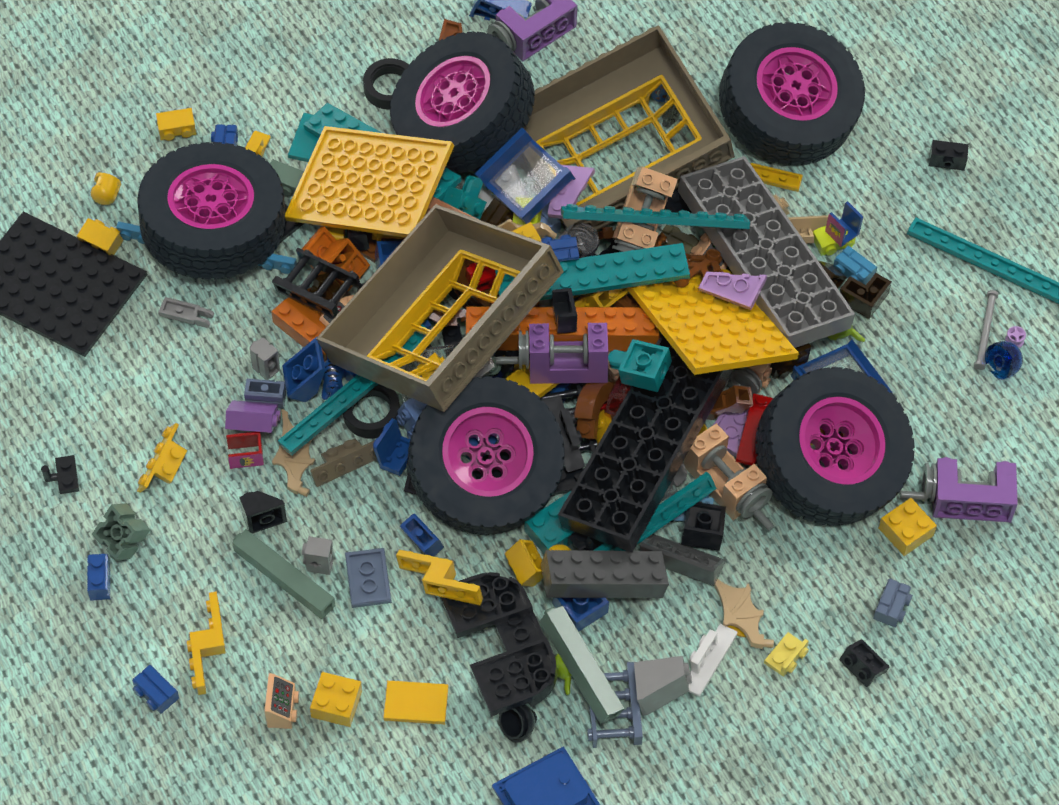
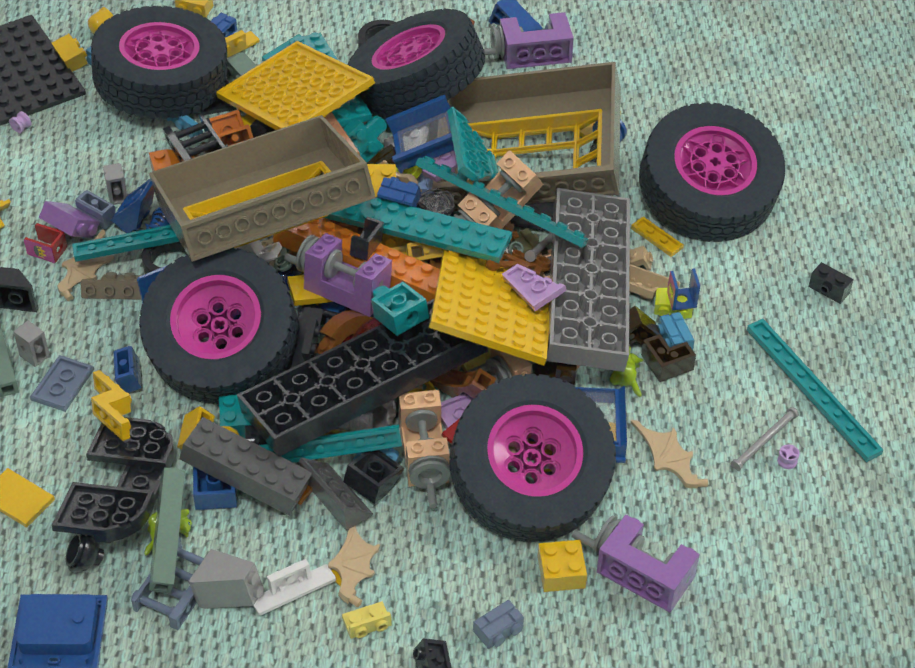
camera: 30 degrees right, 10 degrees down
(113, 336) = (20, 122): none -> lavender wheel
(185, 312) = (88, 130): light grey hinge -> none
(595, 178) = (470, 152): none -> teal plate
(702, 254) = (531, 255): none -> light grey bar
(921, 383) = (670, 455): none -> tan animal
(1004, 356) = (765, 465): clear blue cylinder -> none

